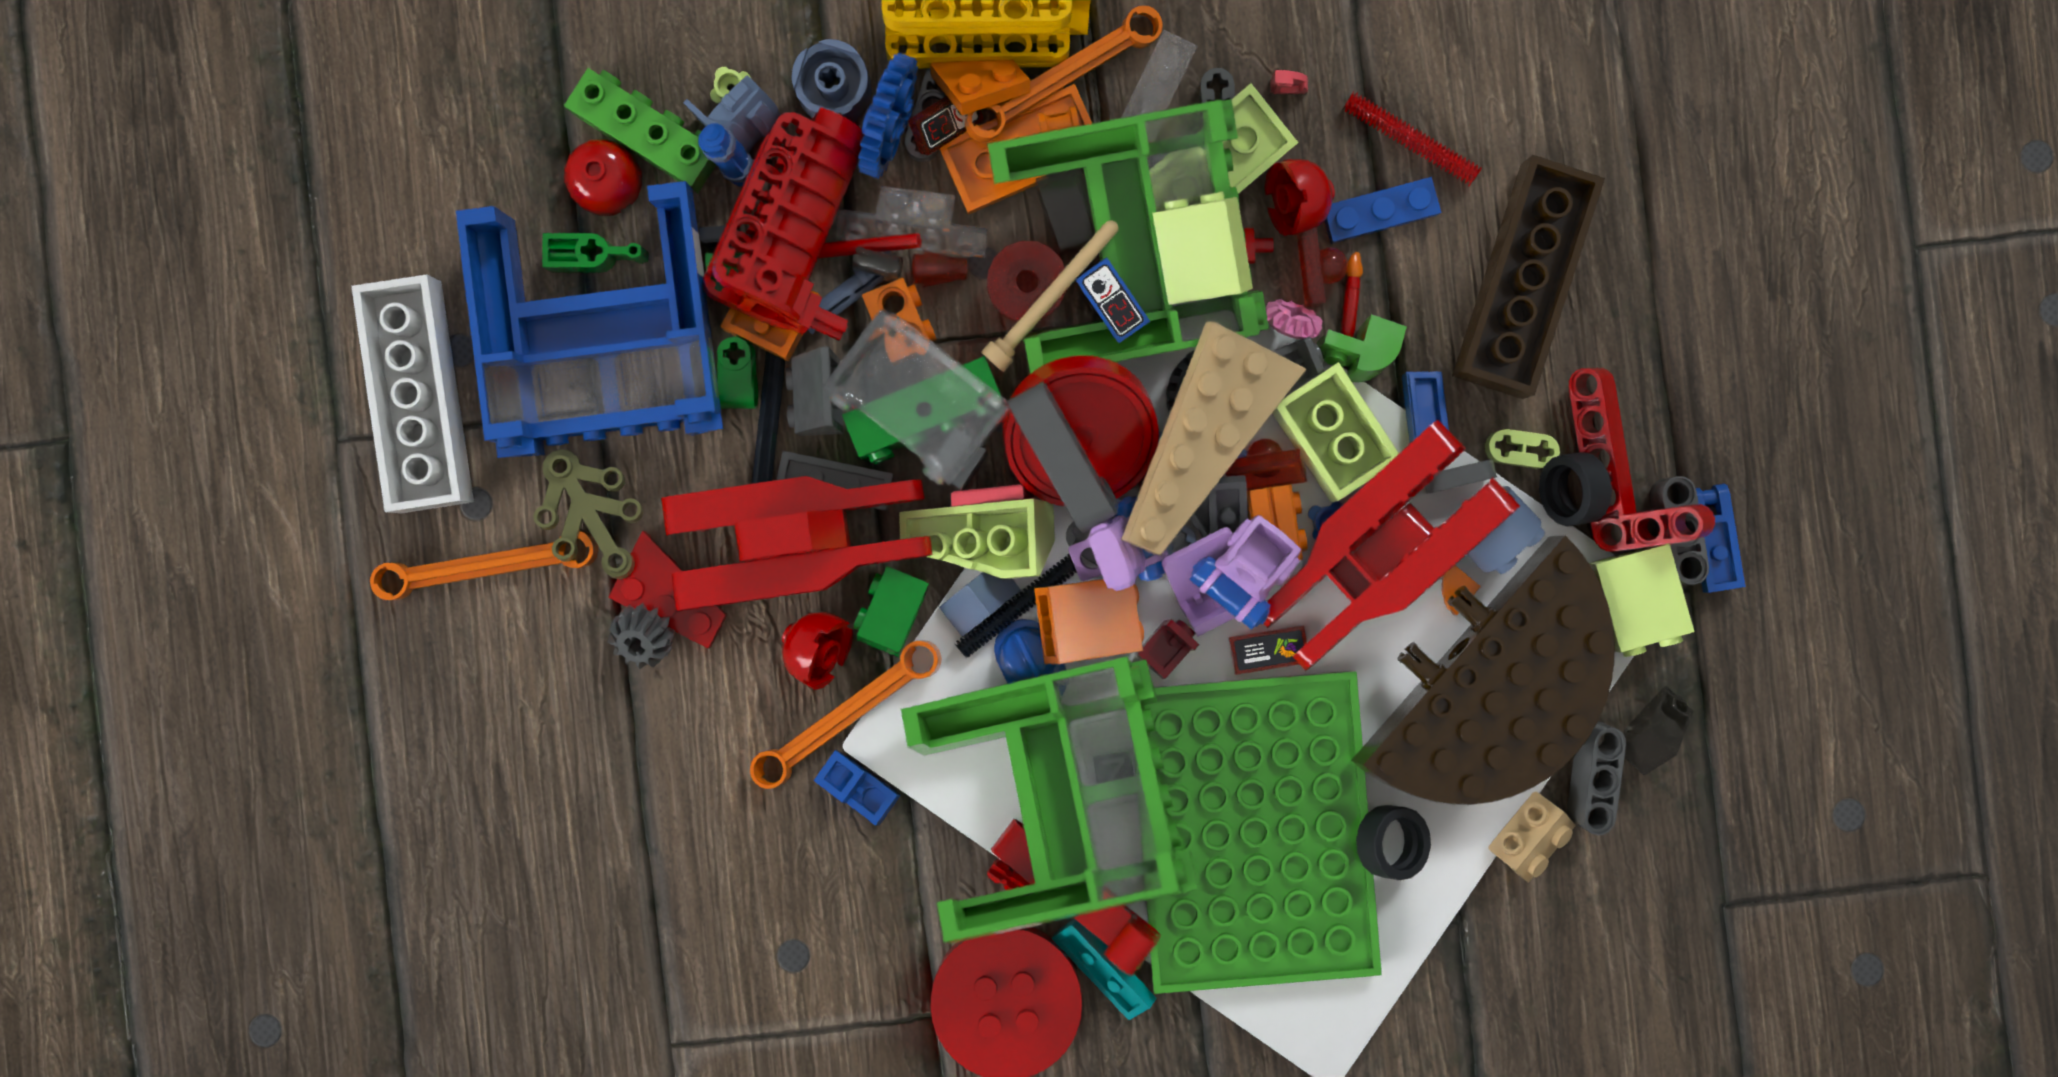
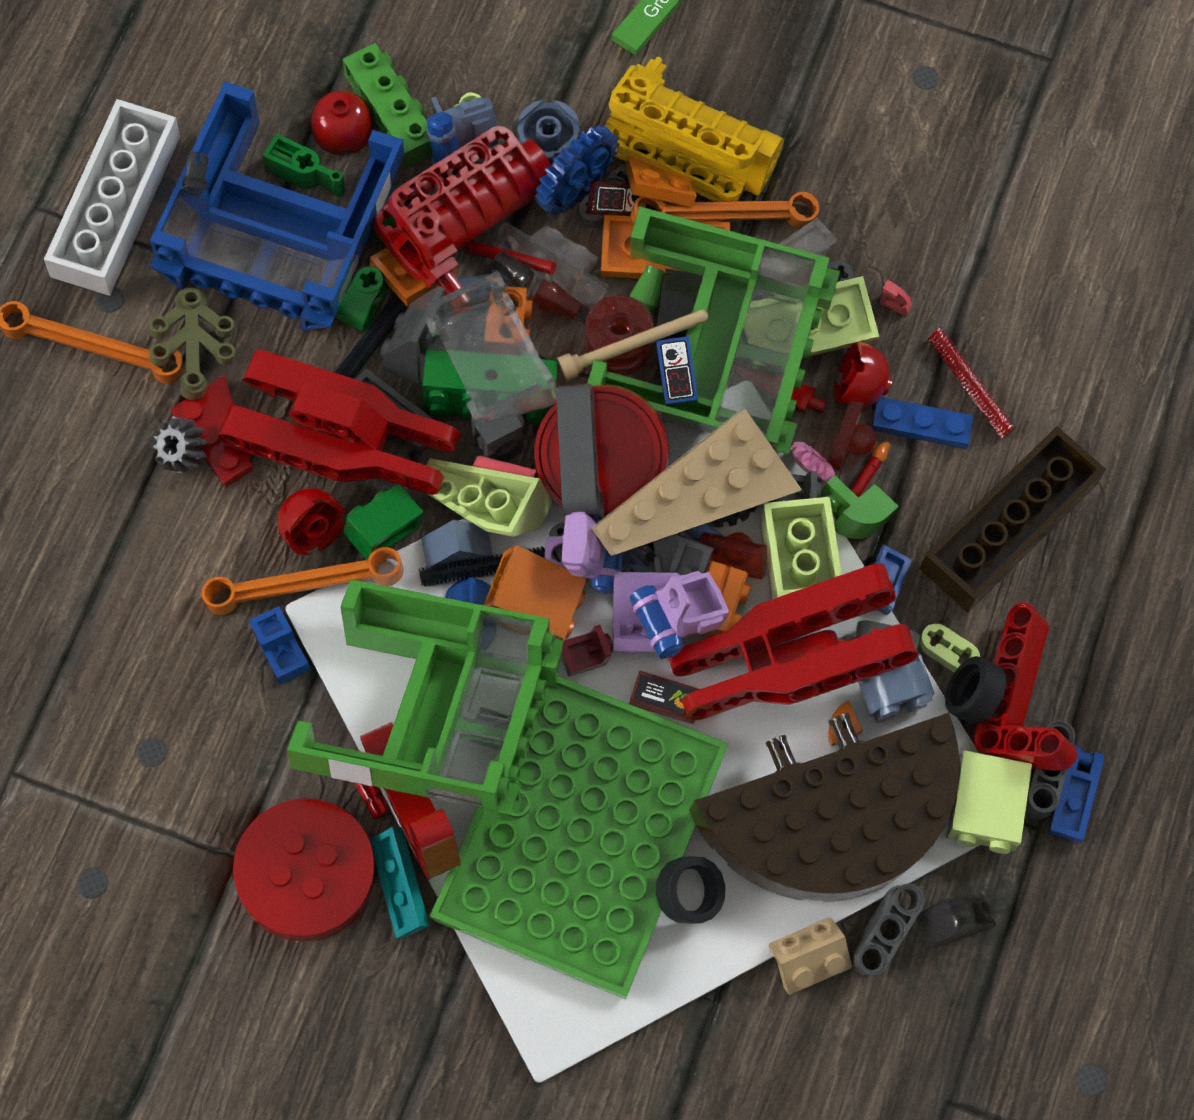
camera: 20 degrees right, 20 degrees down
(490, 343) = (194, 181): none -> clear smoke pin
(1027, 213) = (648, 288): none -> bright green cone
(1202, 249) = (764, 366): yellowish green brick -> none

